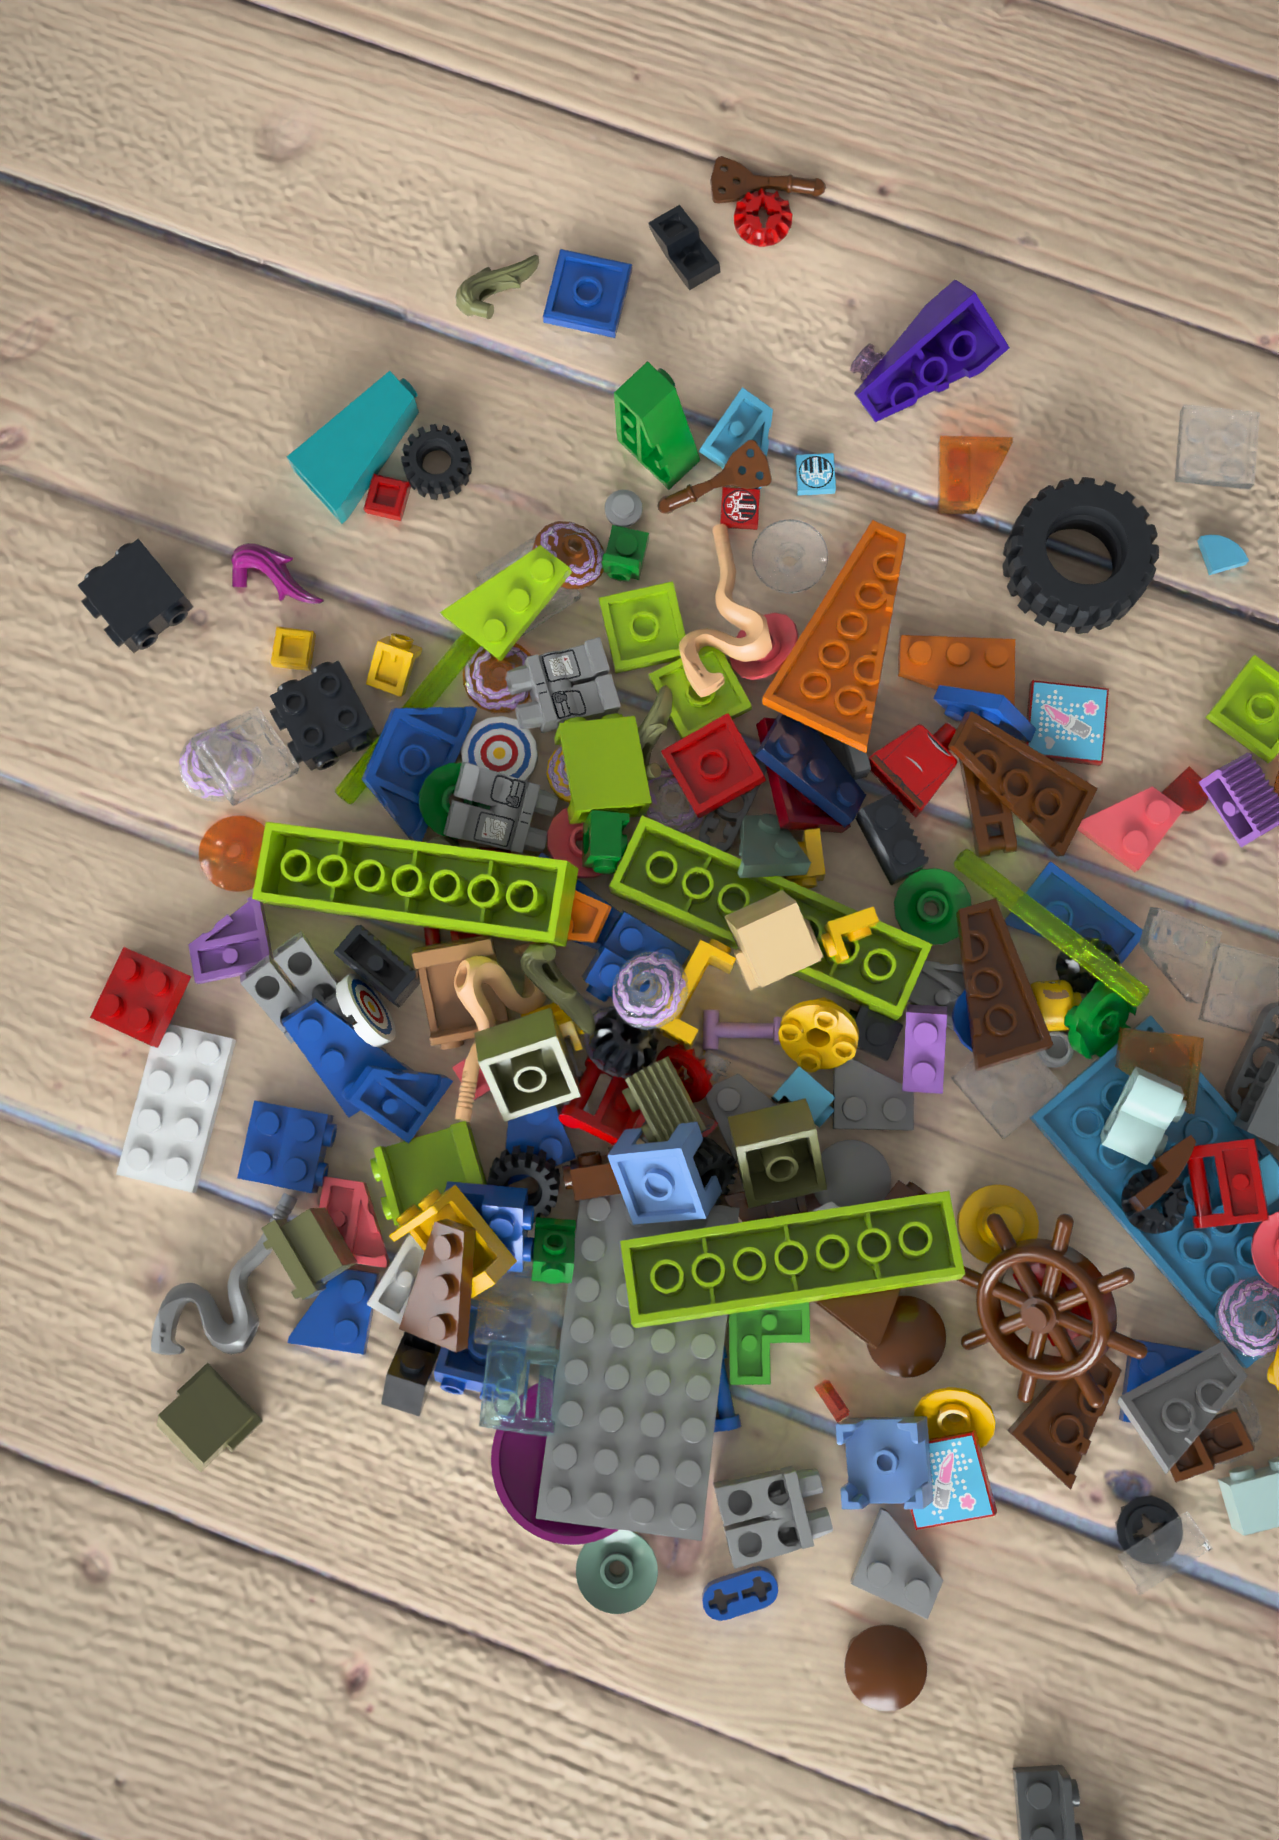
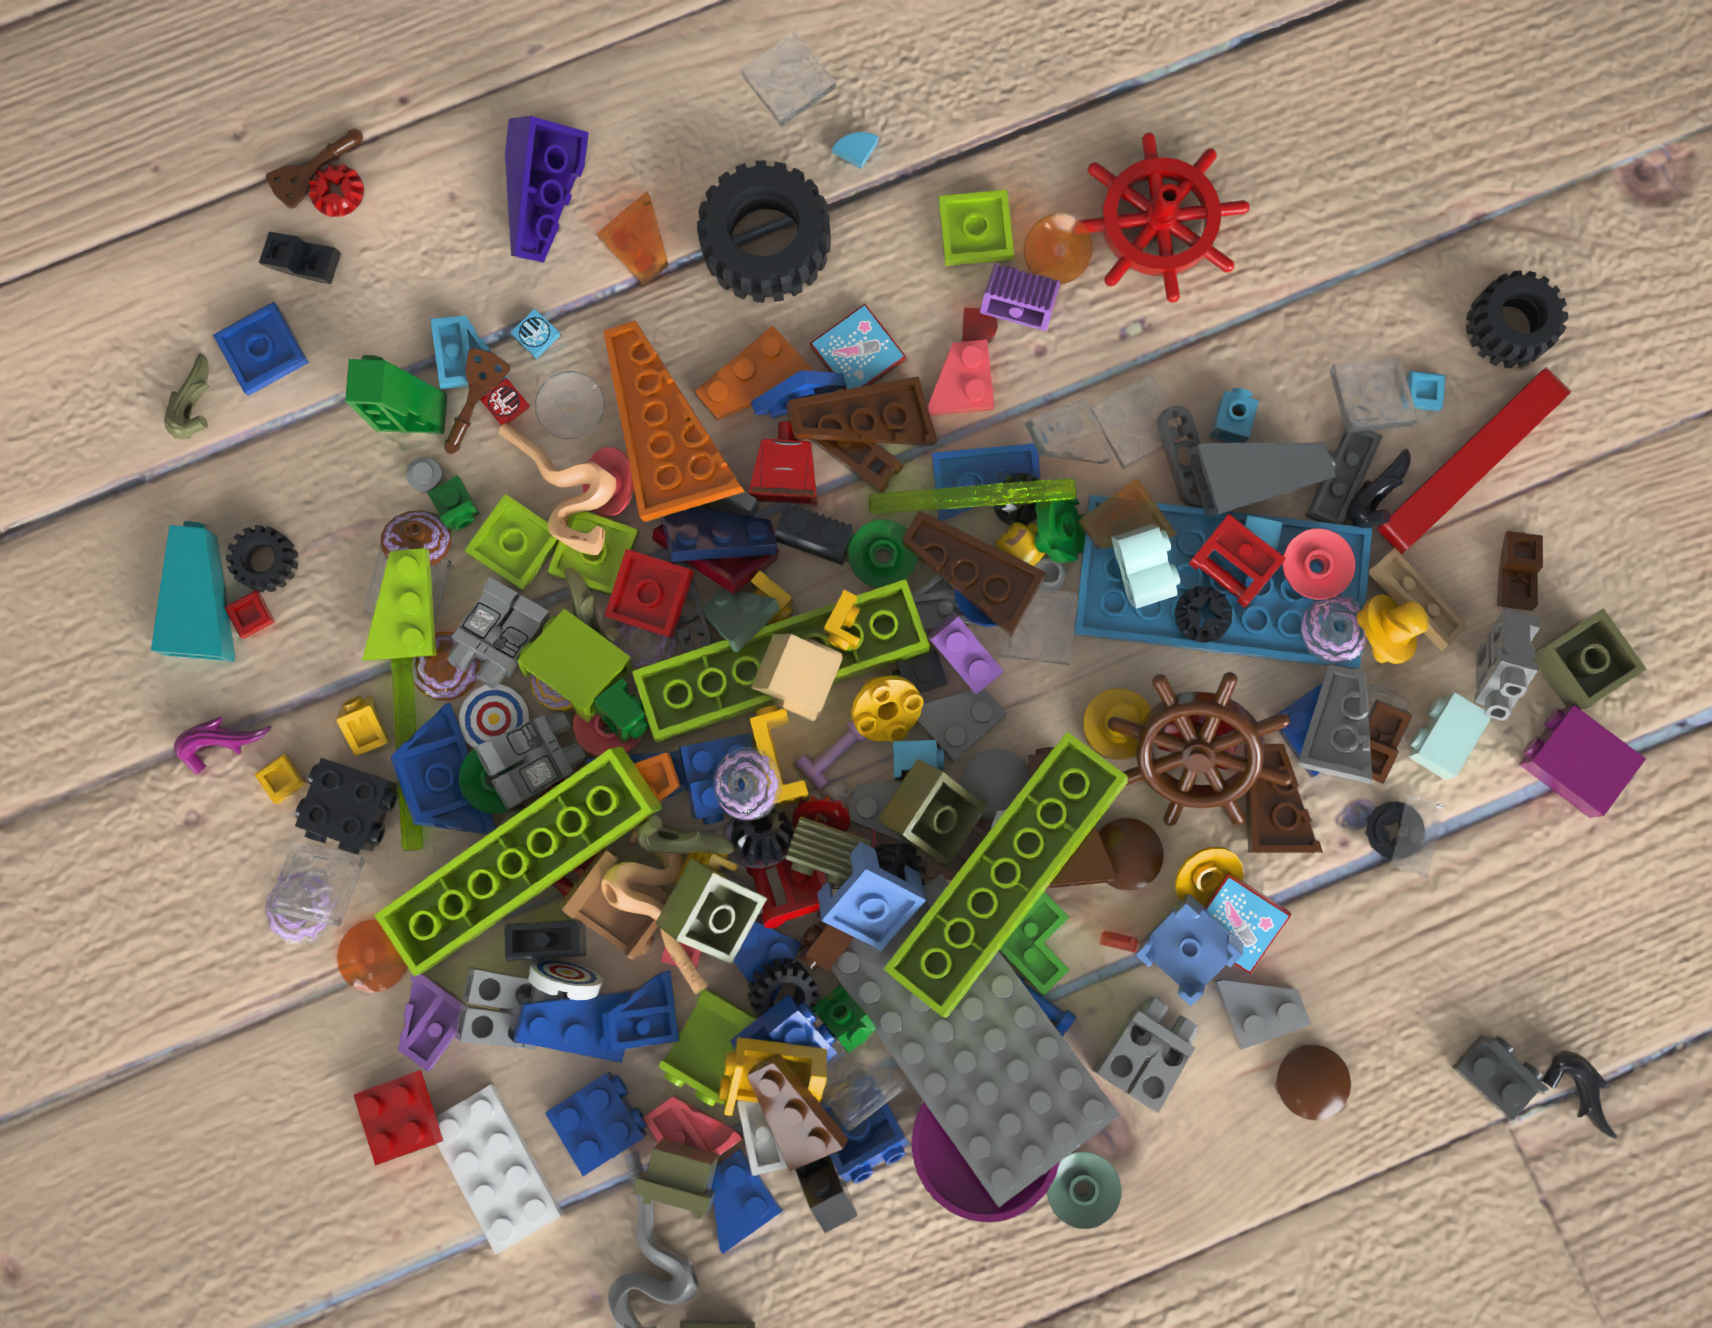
camera: 45 degrees left, 0 degrees up
(134, 597) = (131, 846): black brick -> none
(507, 1387) = (899, 1139): clear light blue plate -> none
(742, 1603) = (1184, 1131): blue beam -> none
(866, 361) = (499, 226): clear purple bush -> none
(1169, 1168) = (1192, 583): reddish brown slope -> none

